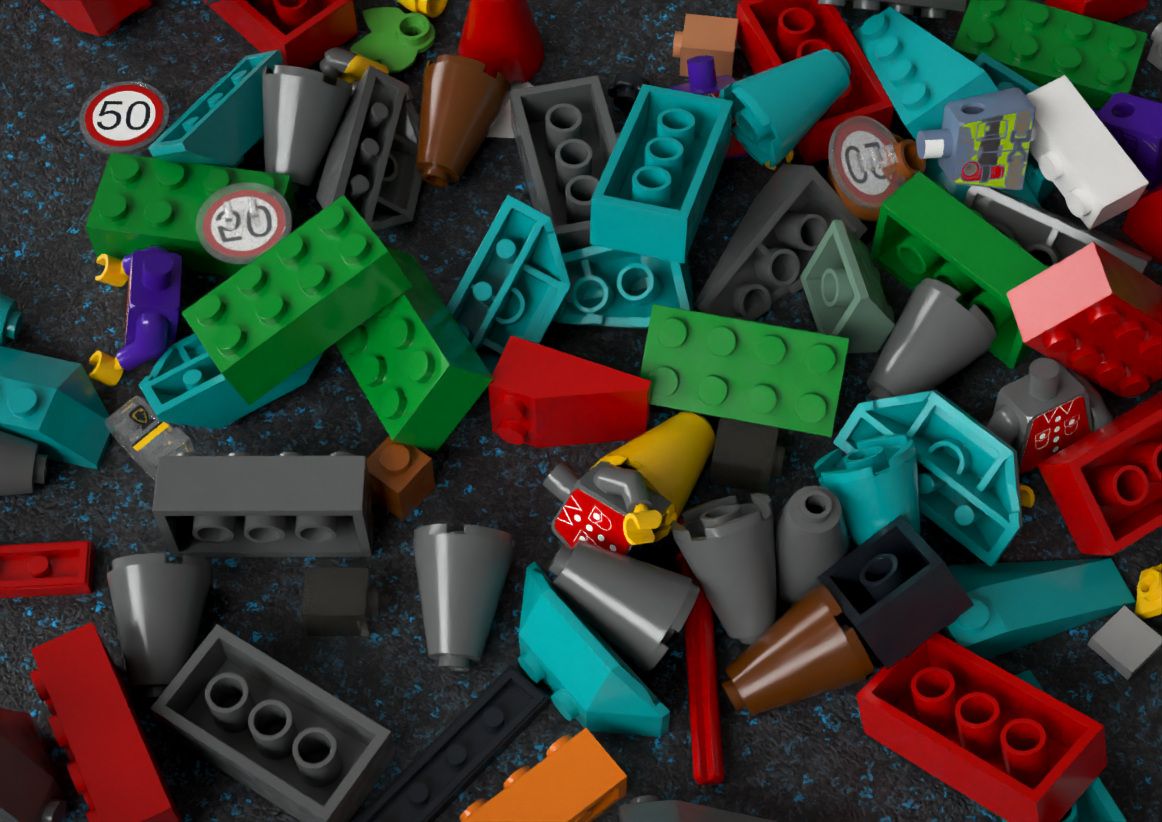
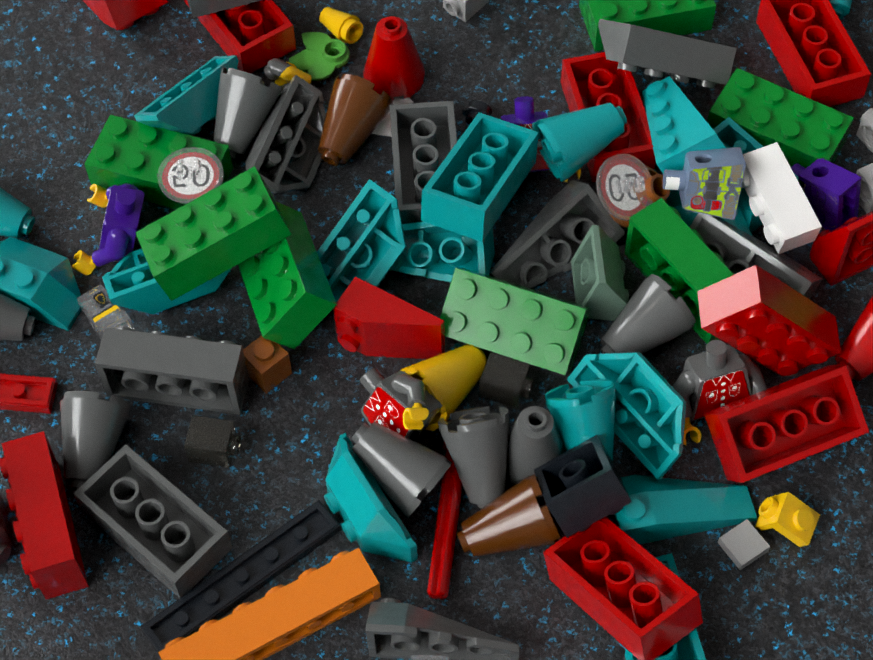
camera: 10 degrees right, 0 degrees up
(124, 117) = (124, 90): piece -> none
(460, 588) = (292, 444): dark grey cone -> none
(709, 37) = (541, 84): nougat brick -> none

